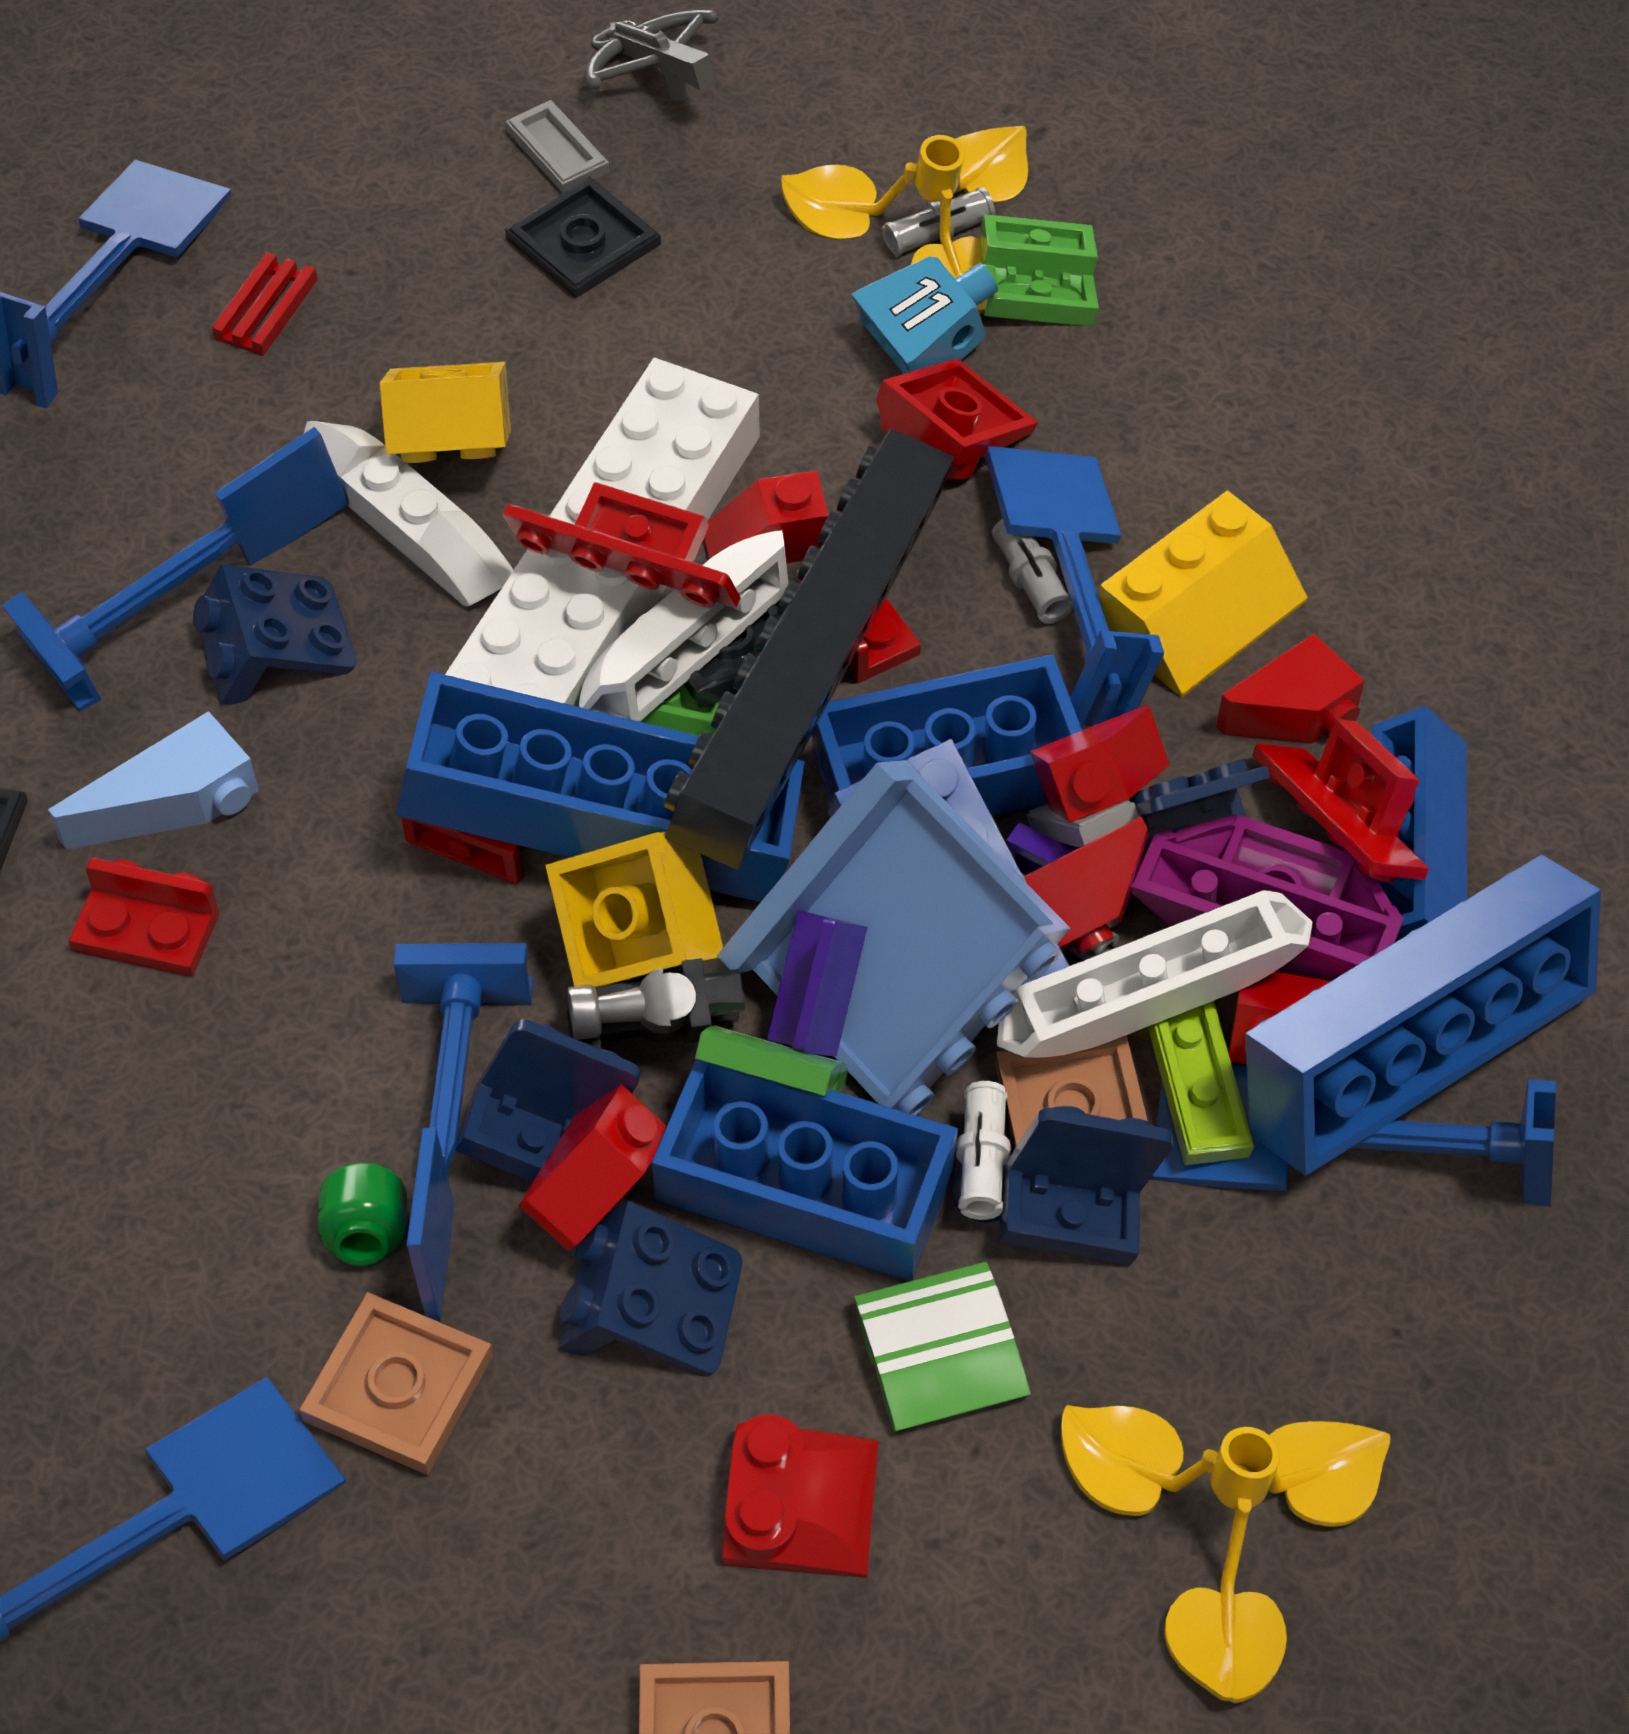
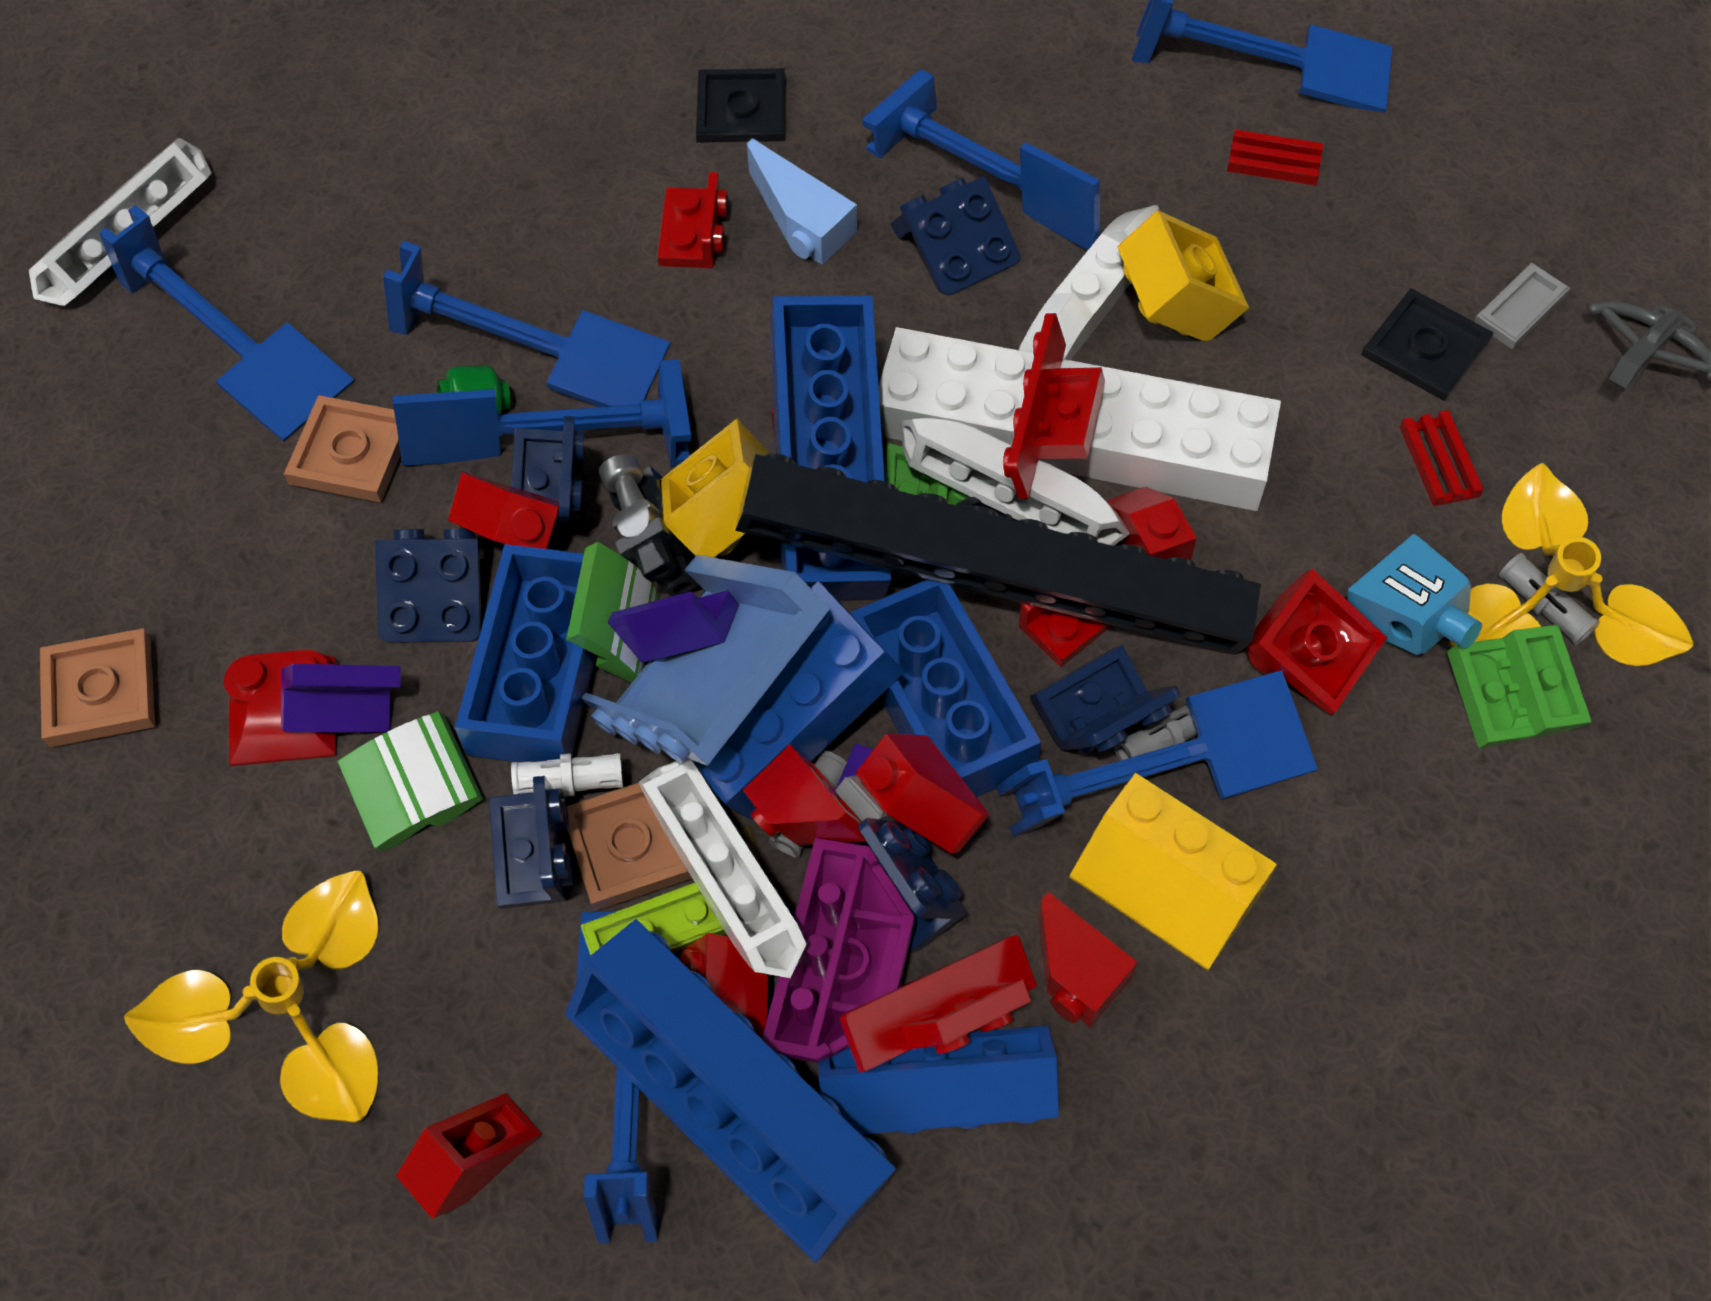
camera: 80 degrees right, 5 degrees up
(335, 1055) = (595, 364): none -> blue piece
(743, 257) = (1429, 425): none -> red tile
(816, 1400) = (337, 698): none -> dark purple panel
(1008, 606) = (1099, 702): none -> dark blue bracket
(1451, 1315) = (465, 1154): none -> red slope

